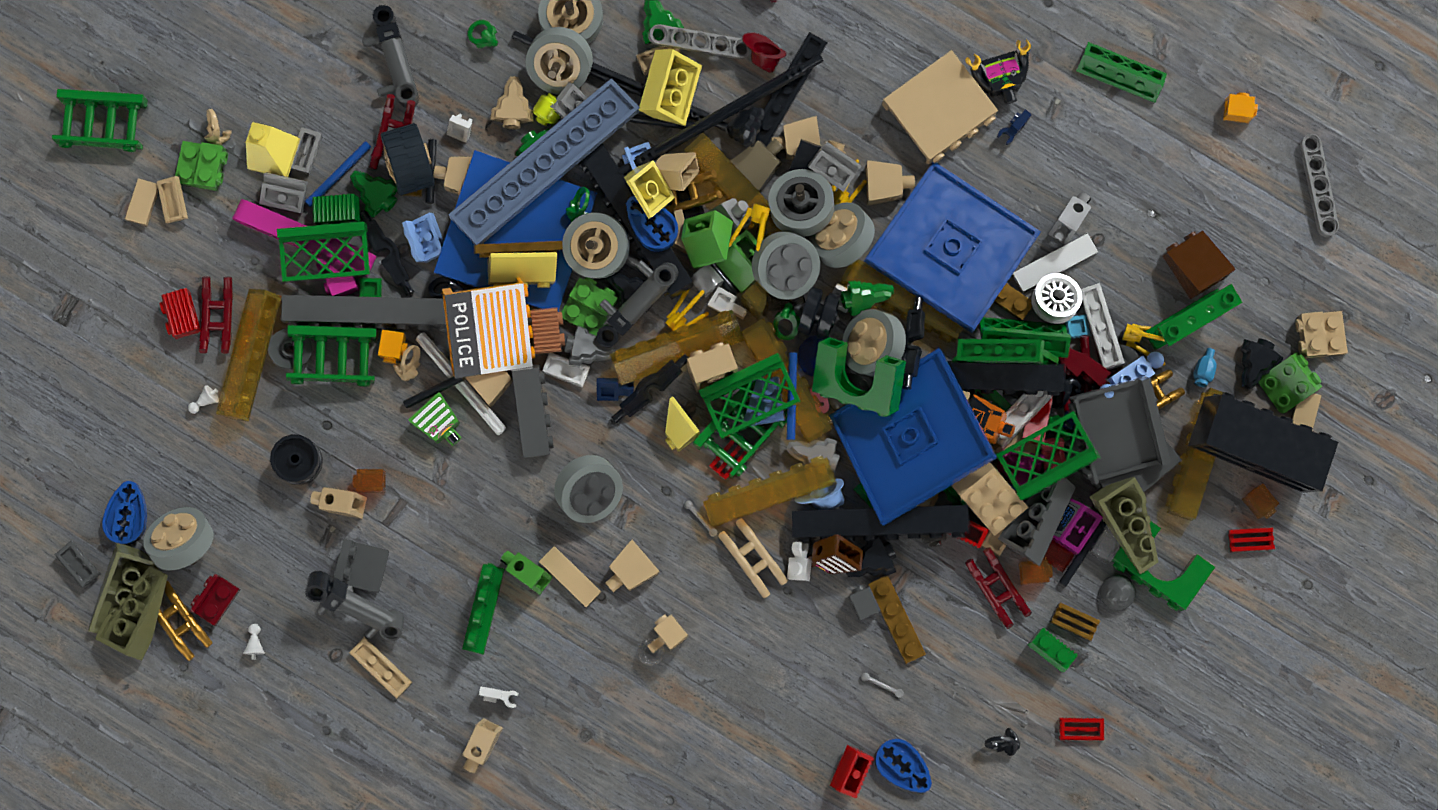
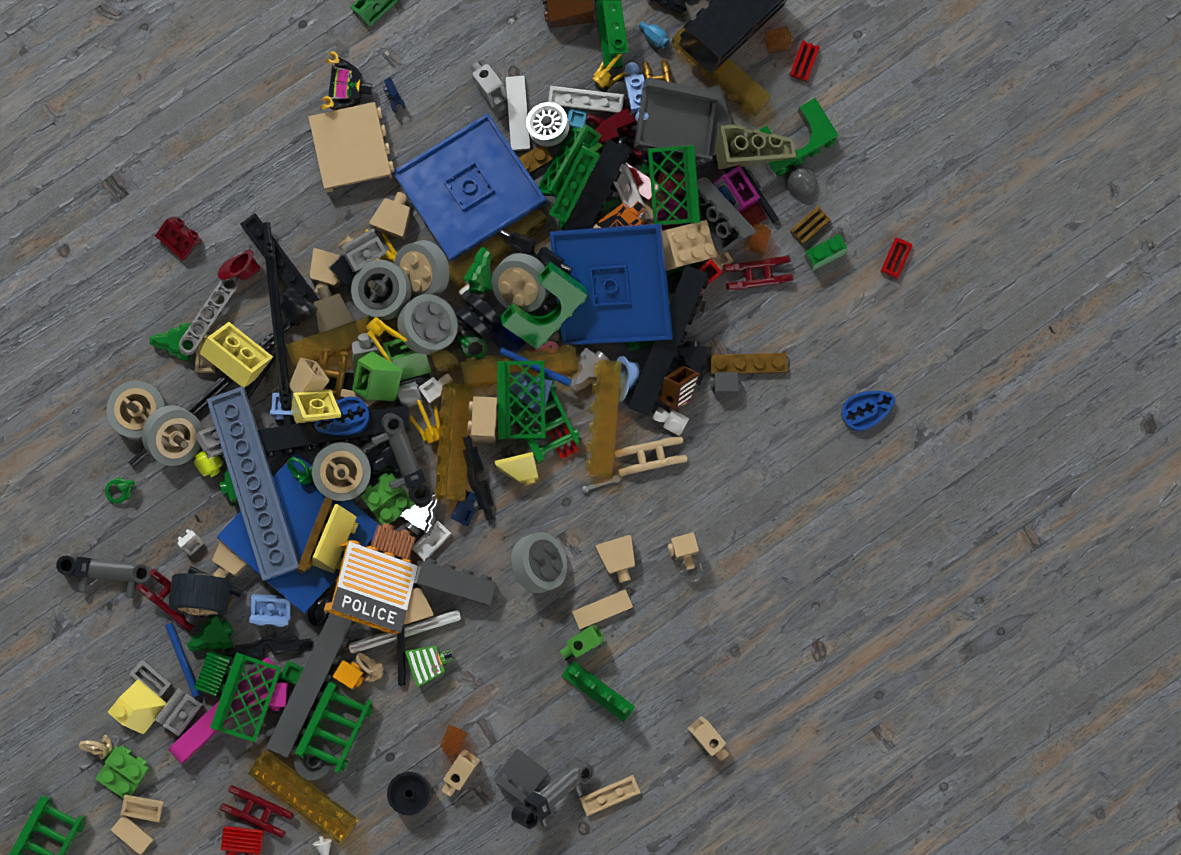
camera: 65 degrees left, 0 degrees up
(492, 695) = (672, 713): white plate -> none
(512, 106) = (191, 491): tan rock -> none
(851, 771) = (855, 450): red brick -> none
(866, 677) = (807, 387): light grey hinge -> none
(1010, 745) = (885, 319): black piece -> none

